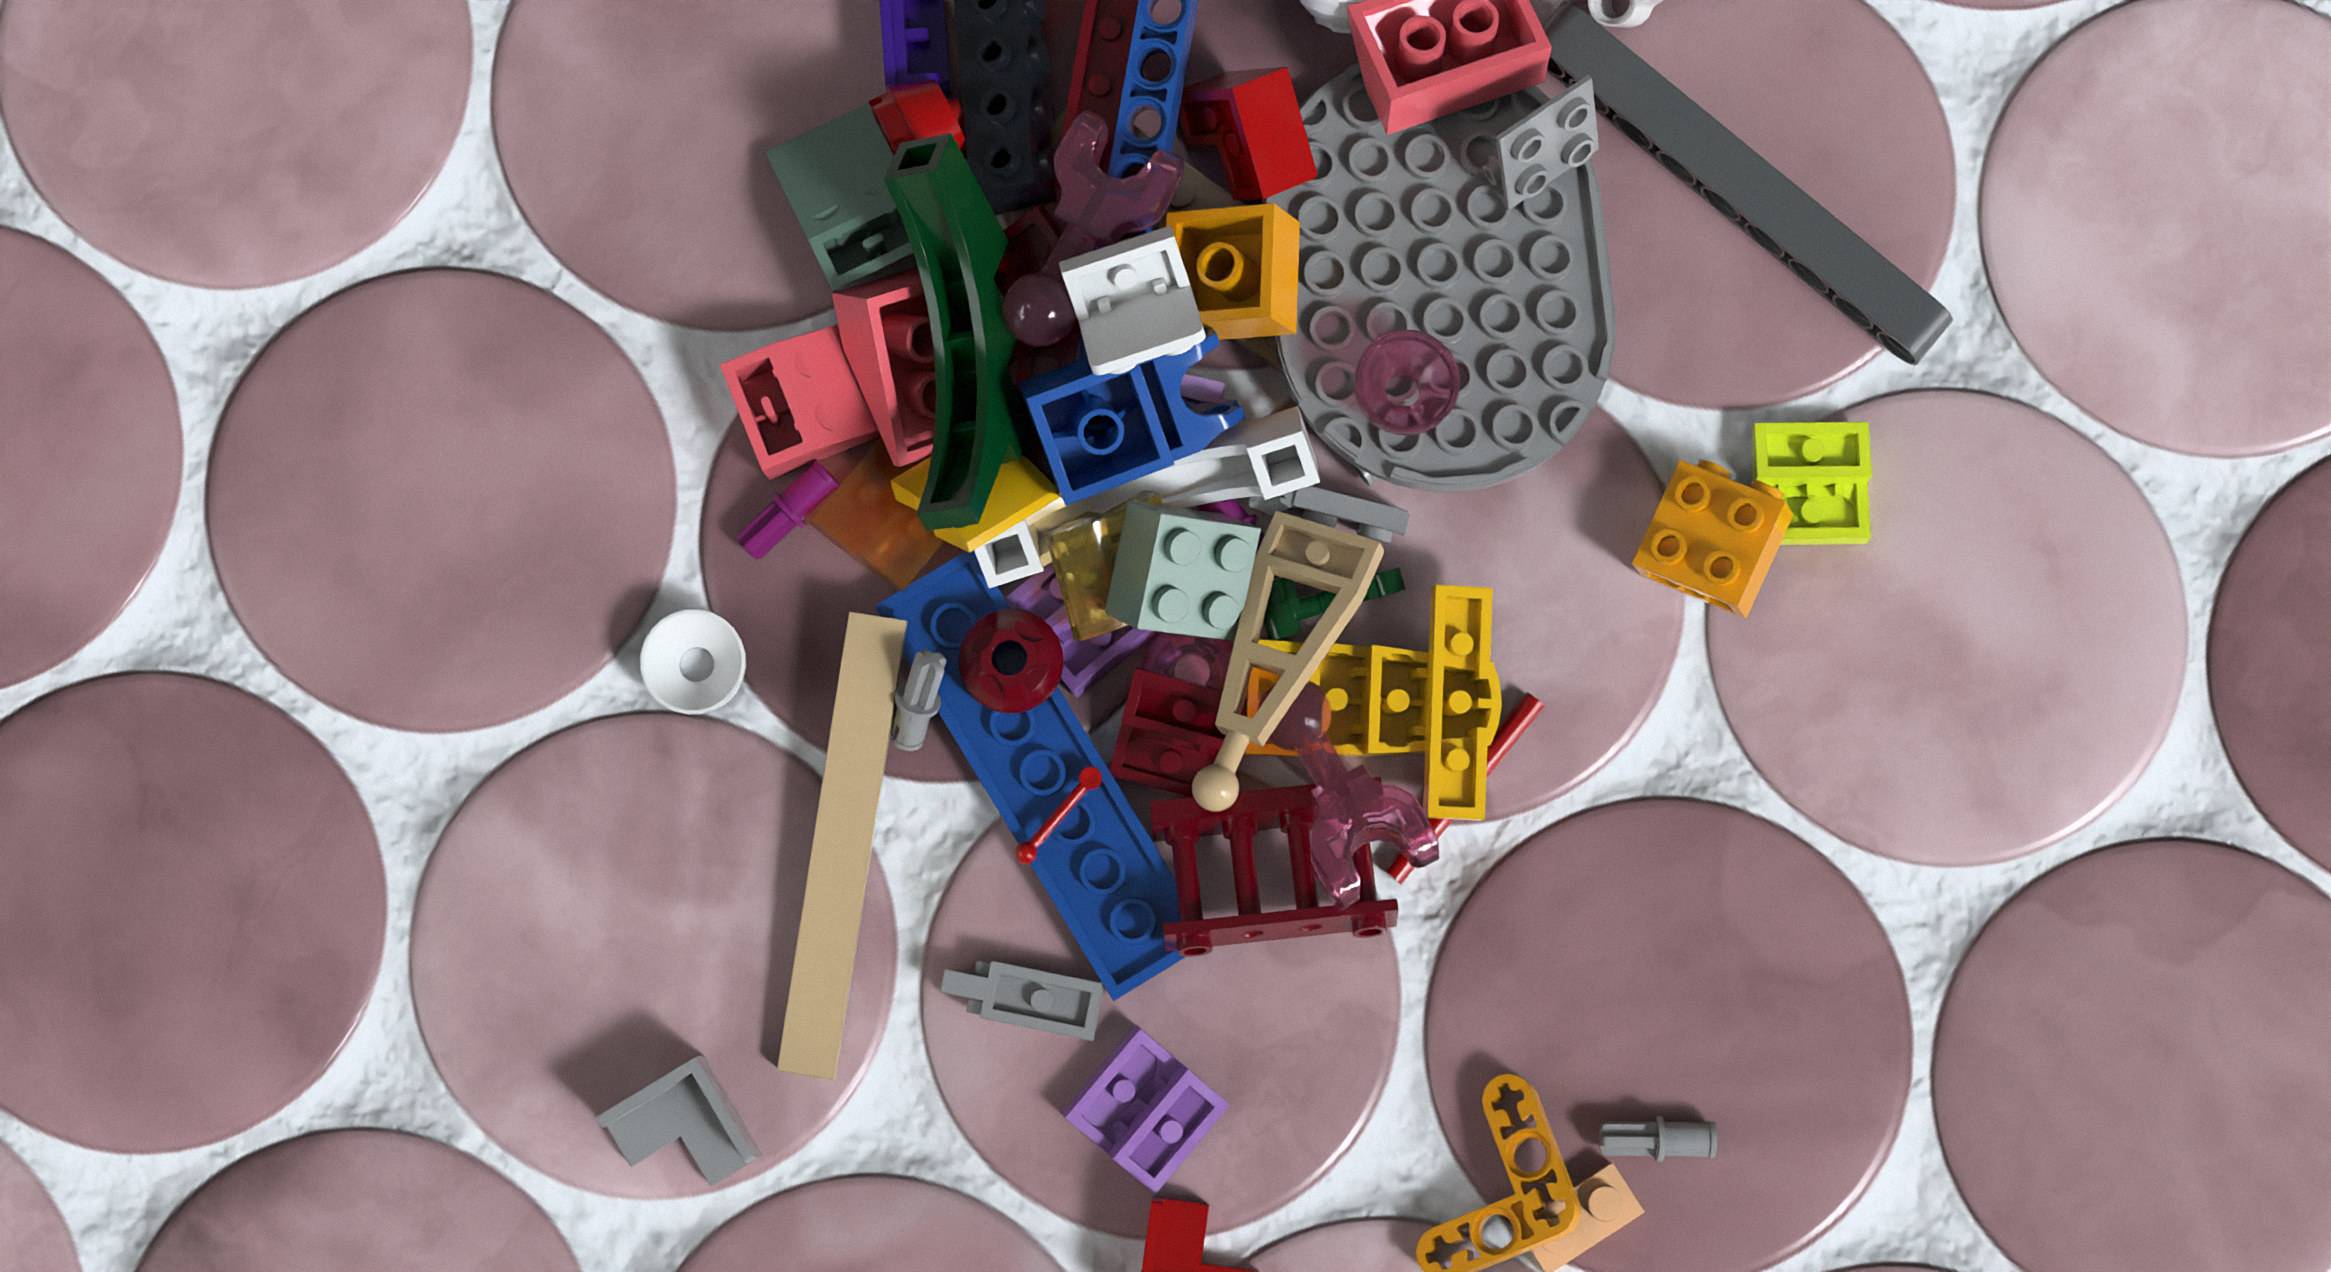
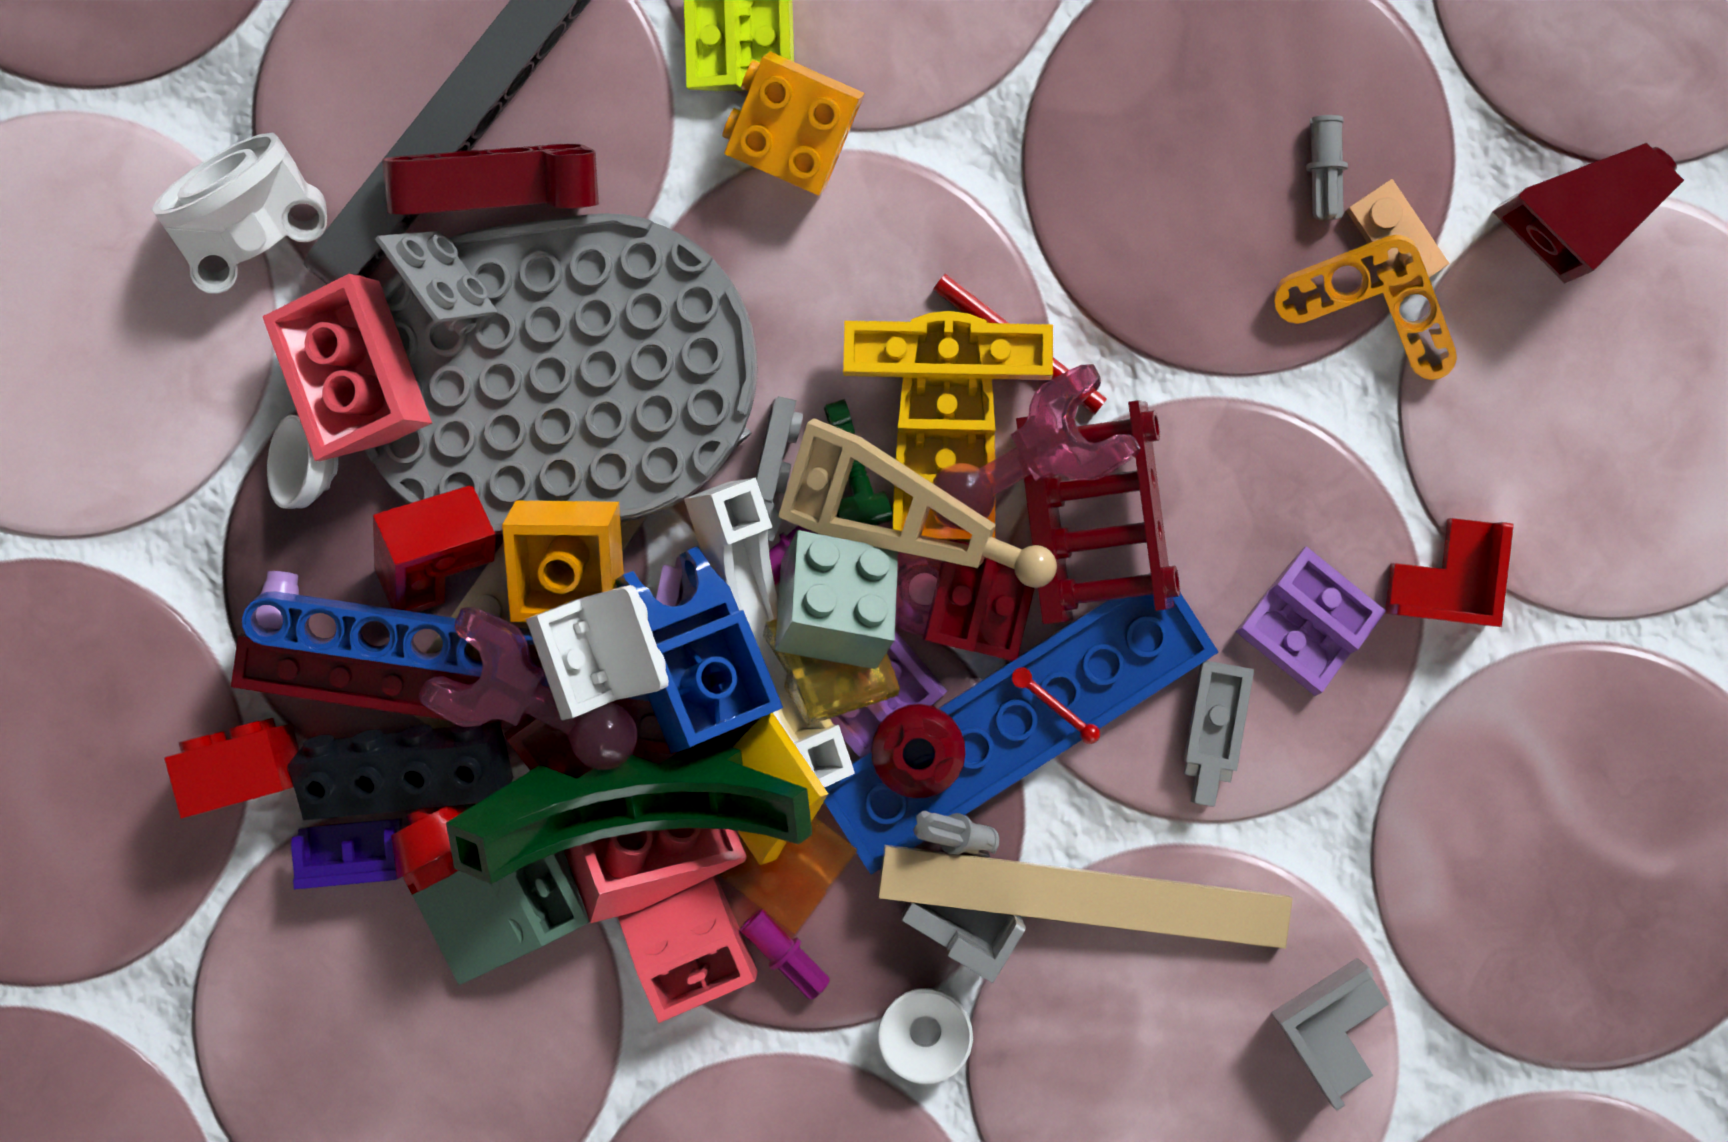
camera: 90 degrees left, 5 degrees up
(803, 712) = (970, 936): none -> light grey panel
(1418, 358) = (641, 385): clear pink piece -> none
(1655, 205) = (491, 178): none -> dark red beam

